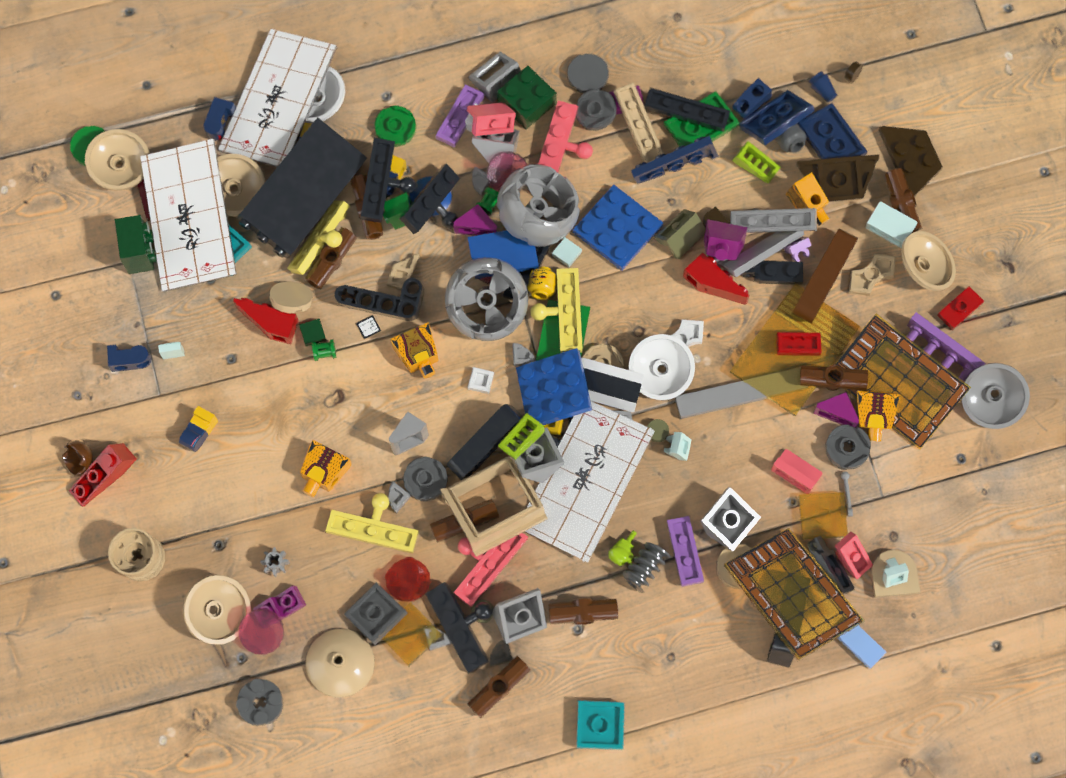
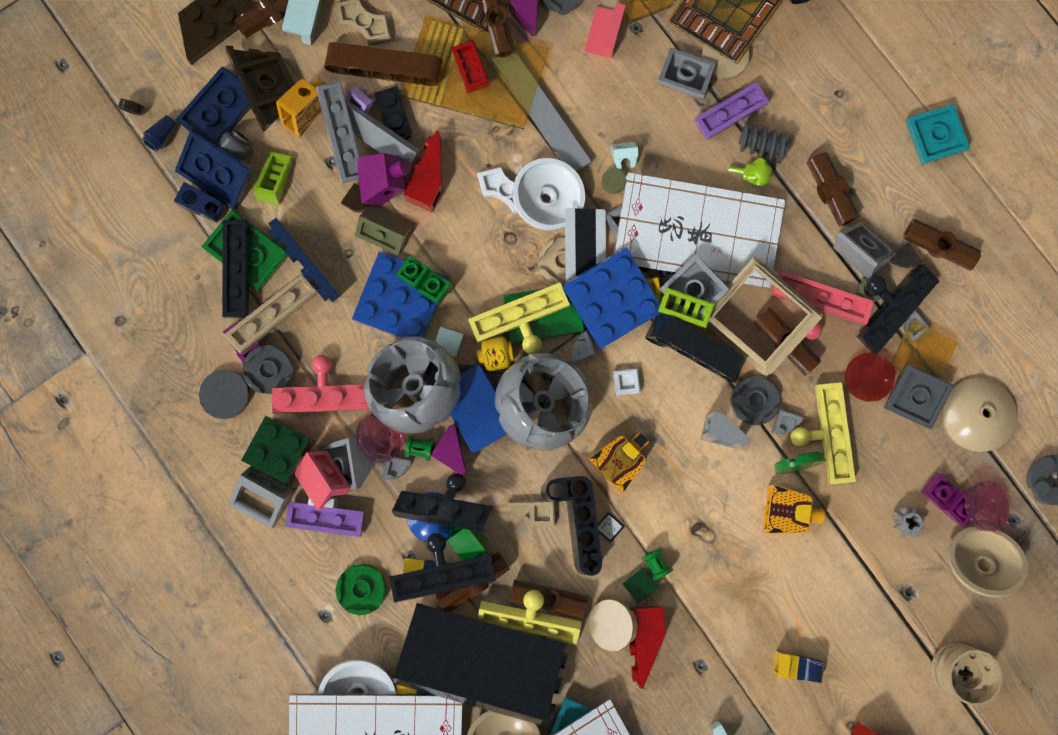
camera: 110 degrees left, 10 degrees up
(358, 487) = (799, 463): none -> green tile
(623, 246) = (424, 280): none -> green slope

